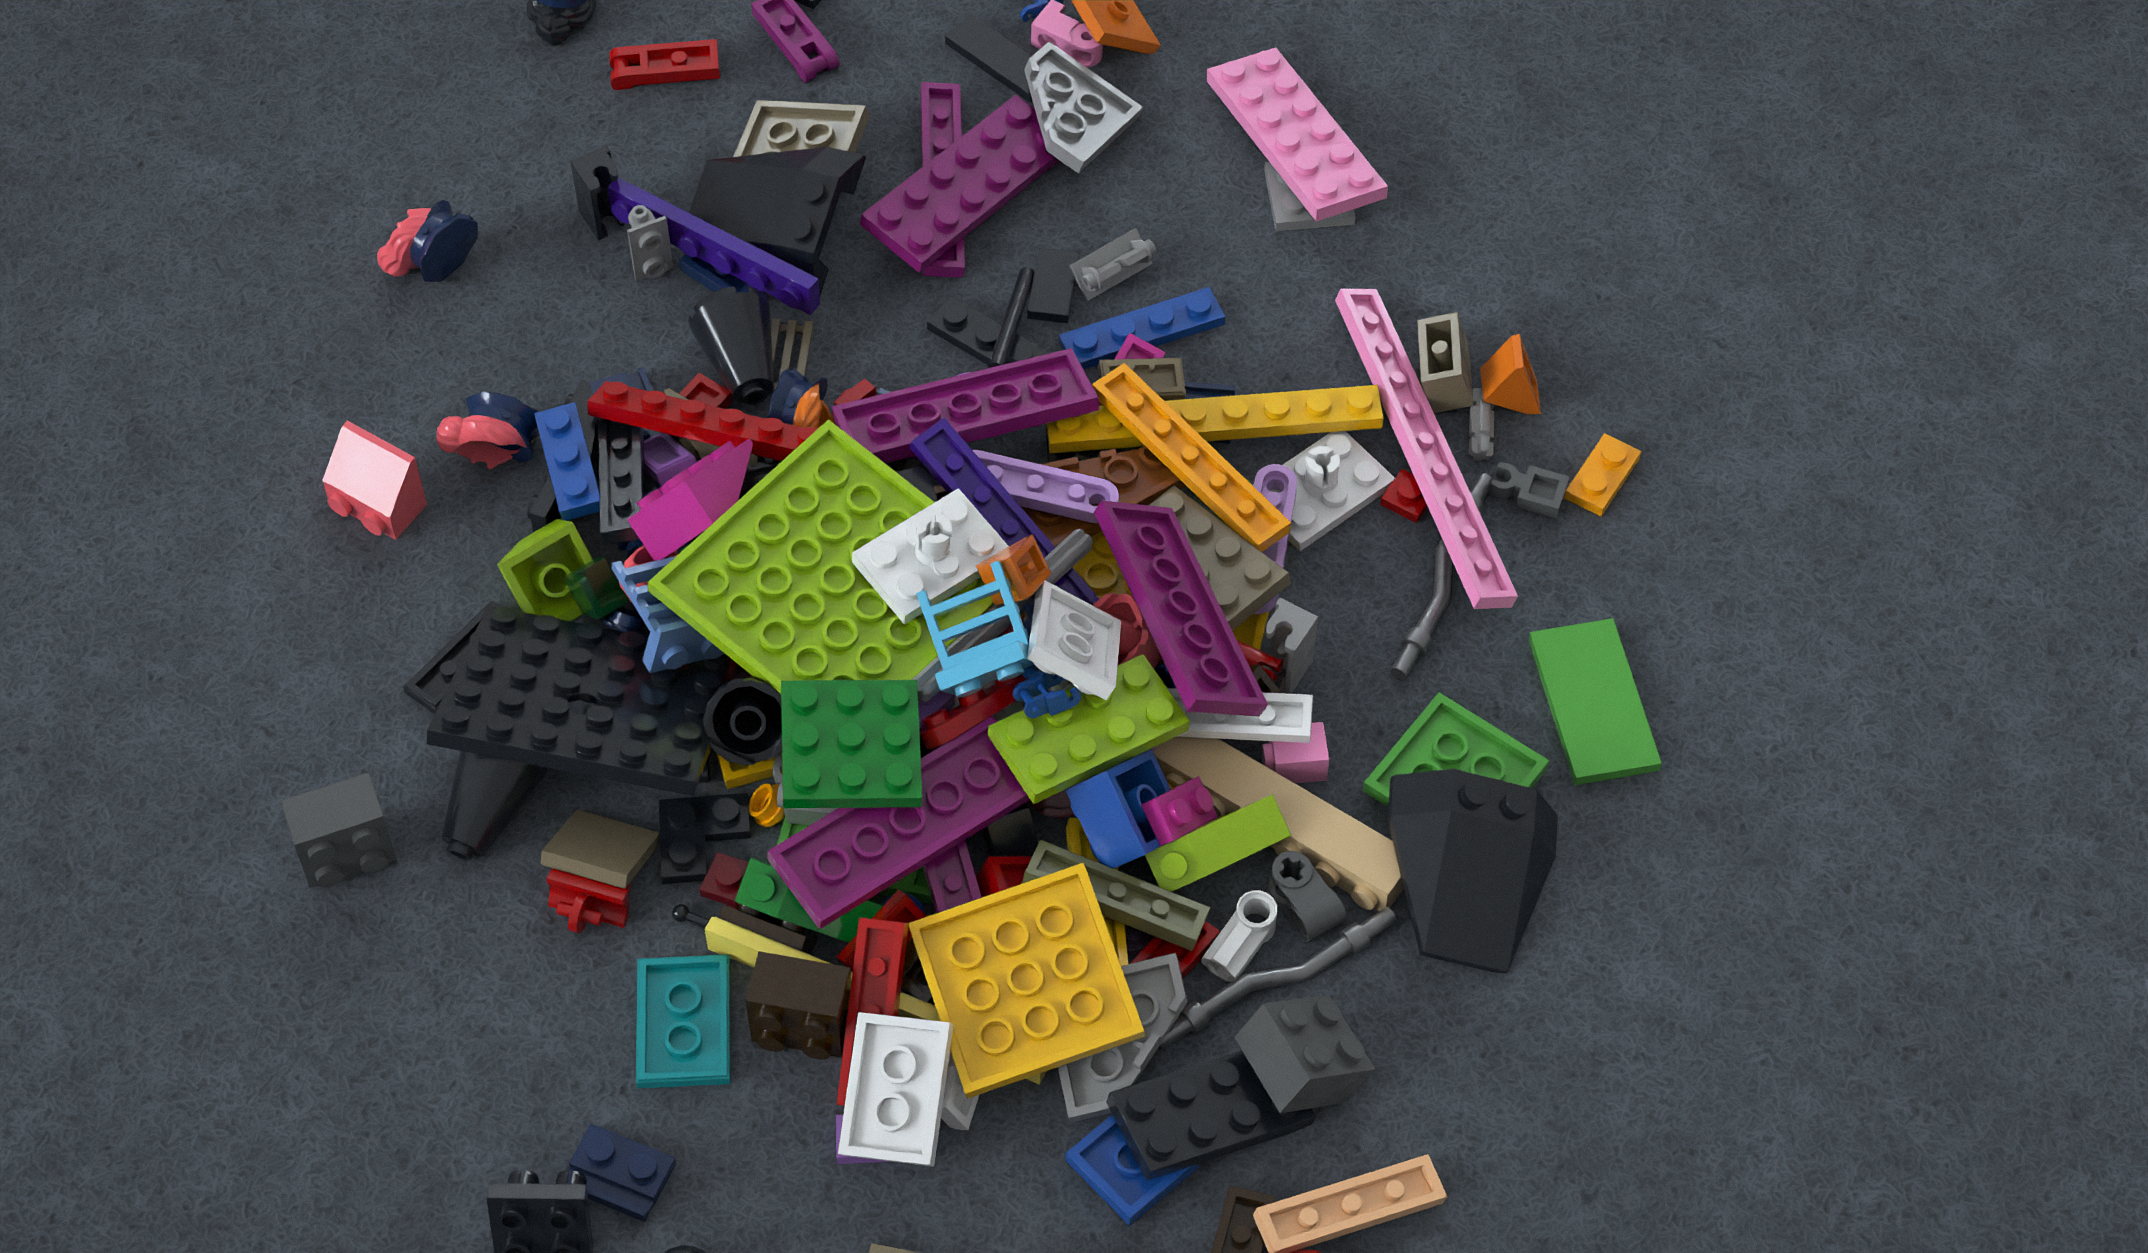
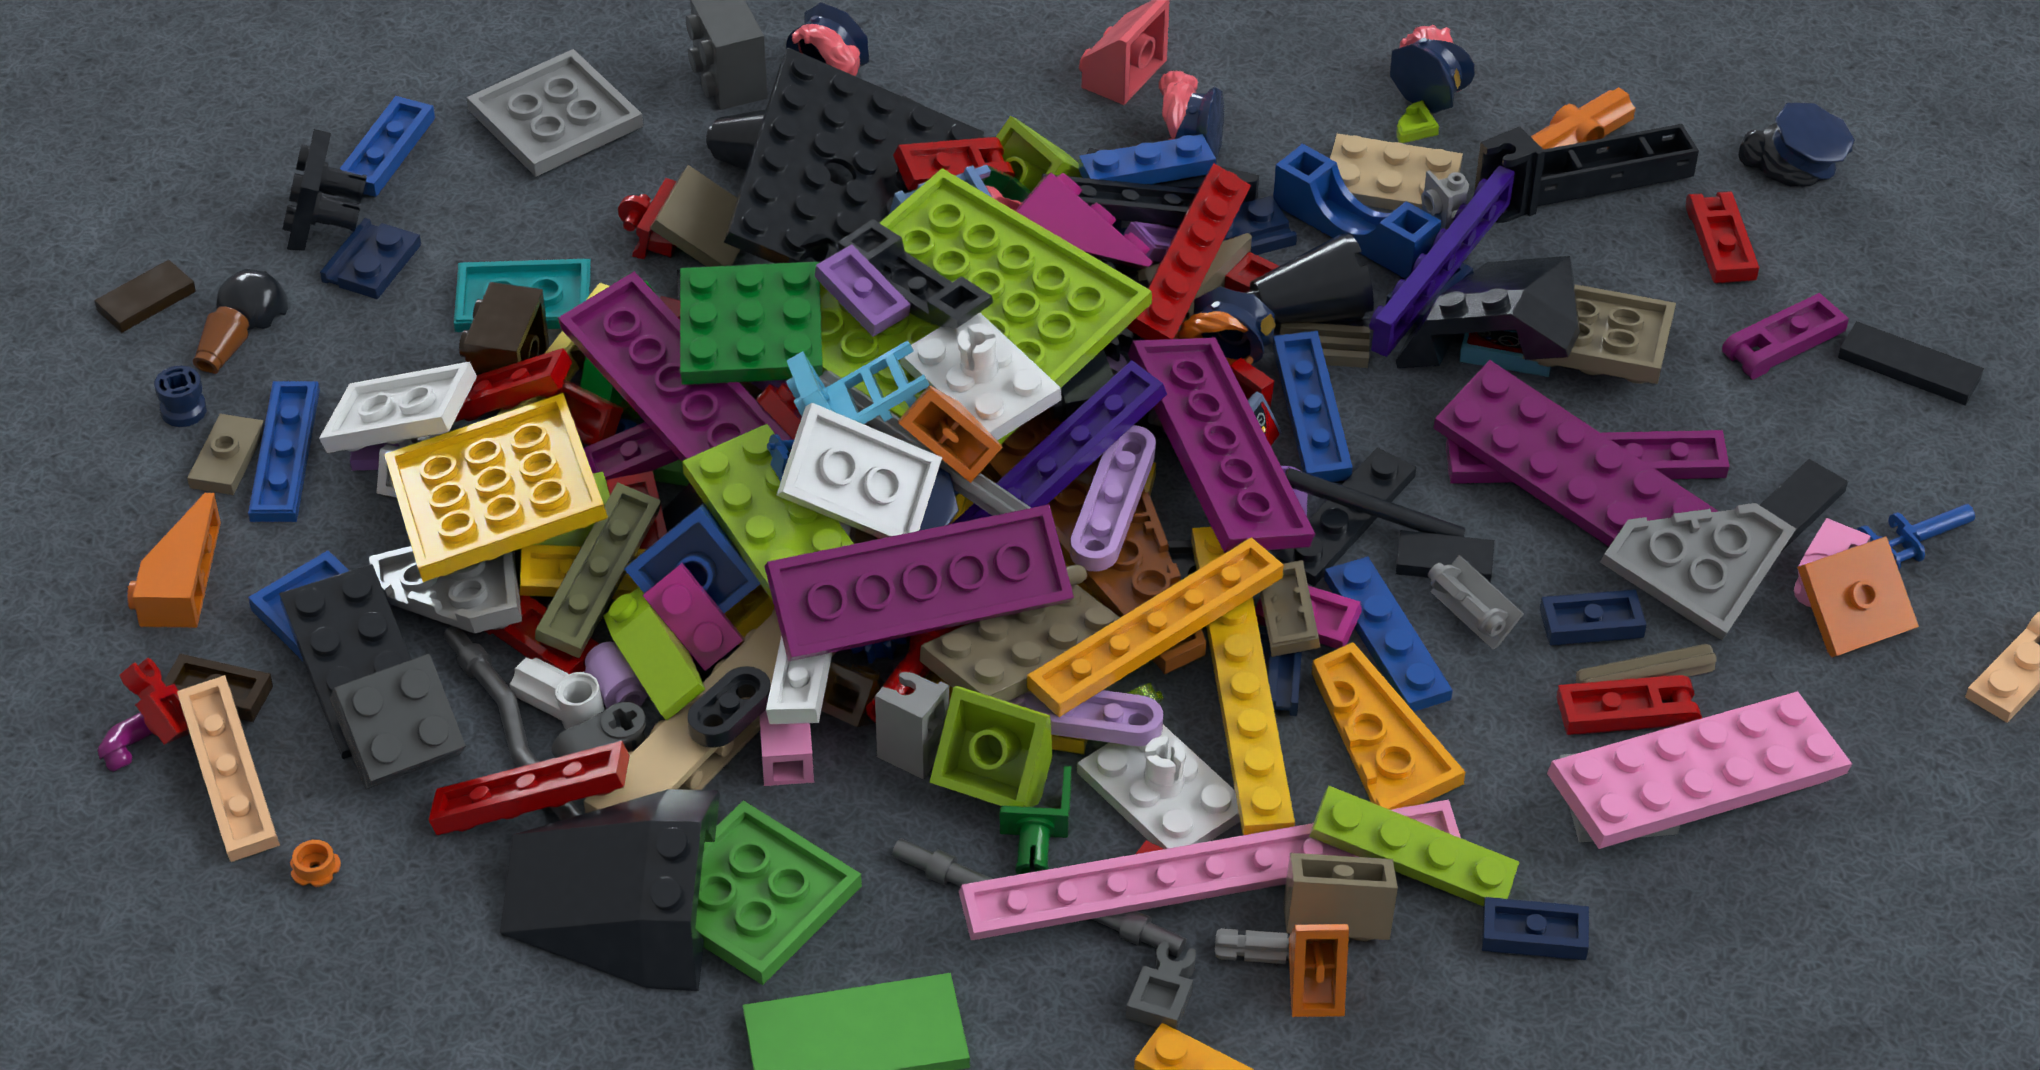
camera: 90 degrees right, 10 degrees down
(347, 741) = (831, 38): none -> piece
(398, 1009) = (554, 112): none -> light grey plate
(433, 1170) = (389, 142): none -> blue plate
(483, 272) = (1416, 124): none -> lime tile
(516, 150) = (1588, 122): none -> orange piece
(559, 294) = (1389, 172): none -> tan plate
(564, 616) = (923, 160): none -> red plate
(567, 114) = (1627, 163): none -> black piece
(665, 287) = (1314, 192): none -> blue arch
(821, 597) = (928, 292): none -> black slope
(827, 641) = (862, 290): none -> medium lavender plate
(882, 361) = (1312, 406): none -> blue plate
(907, 1222) = (284, 451): none -> blue tile
(1126, 190) = (1592, 617): none -> dark blue plate
(1179, 164) = (1683, 661): none -> dark tan axle
(1221, 178) = (1627, 704): none -> red plate
(1222, 890) = (614, 675): none -> lavender brick
(1264, 333) = (1385, 739): none -> light orange wing
(1291, 776) = (722, 713): none -> black plate
(1328, 583) = (993, 750): none -> lime slope
(1374, 940) = (529, 788): none -> red plate
(1376, 570) = (1036, 827): none -> green bracket
(1391, 315) = (1414, 847): none -> lime plate
(1451, 1115) = (313, 853): none -> orange plate
(1452, 251) = (1535, 928): none -> dark blue plate

